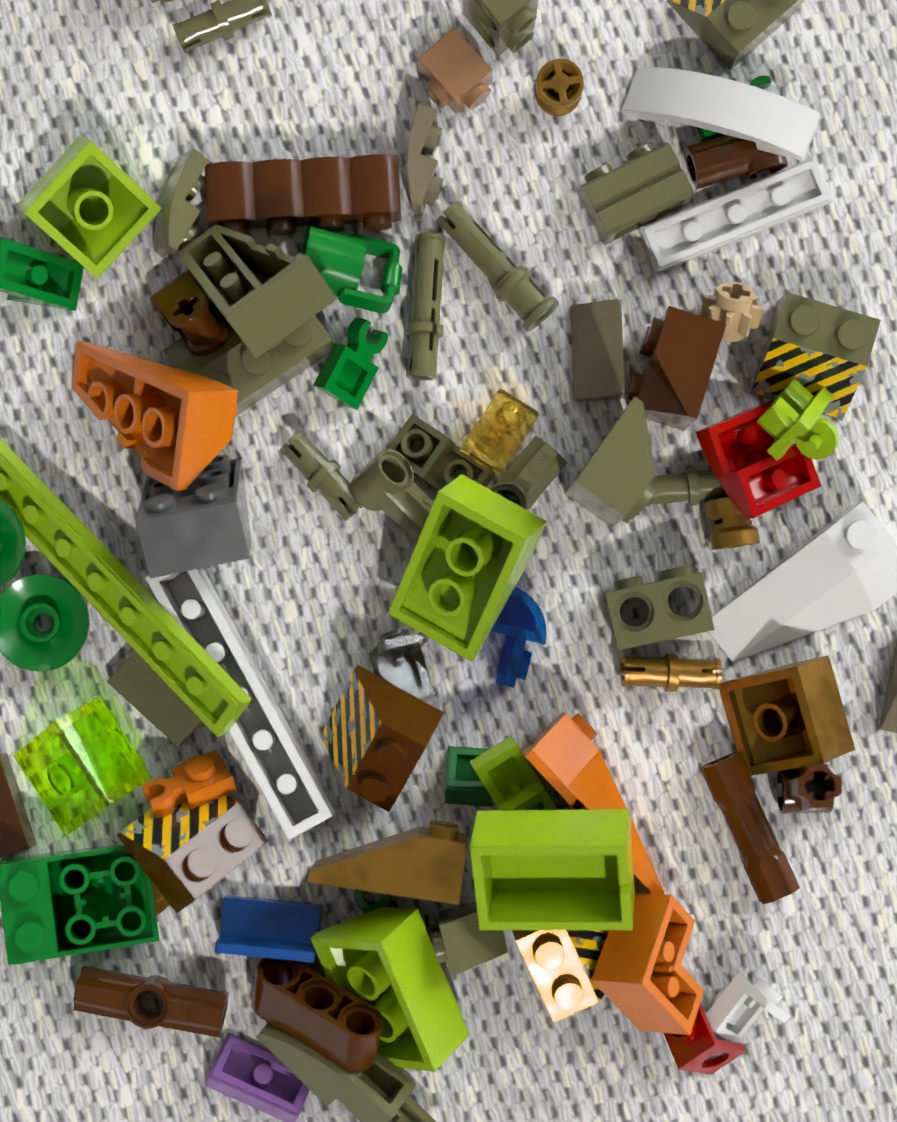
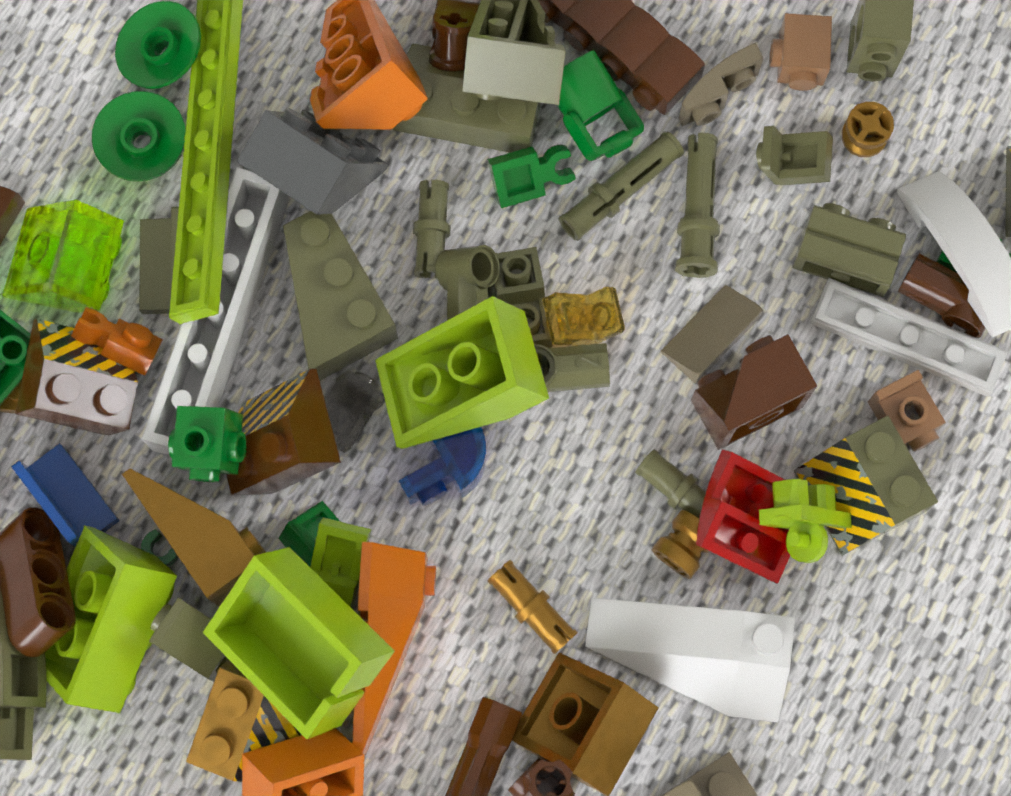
camera: 50 degrees right, 10 degrees down
(309, 597) = (334, 297): none -> olive wedge
(343, 798) = (207, 442): none -> green brick
(529, 160) = (795, 157): none -> olive bracket
(619, 471) = (634, 409): olive slope -> none
(662, 621) = (562, 560): olive brick -> none
(736, 306) = (836, 396): tan gear -> none
(775, 277) = (892, 401): none -> medium nougat brick

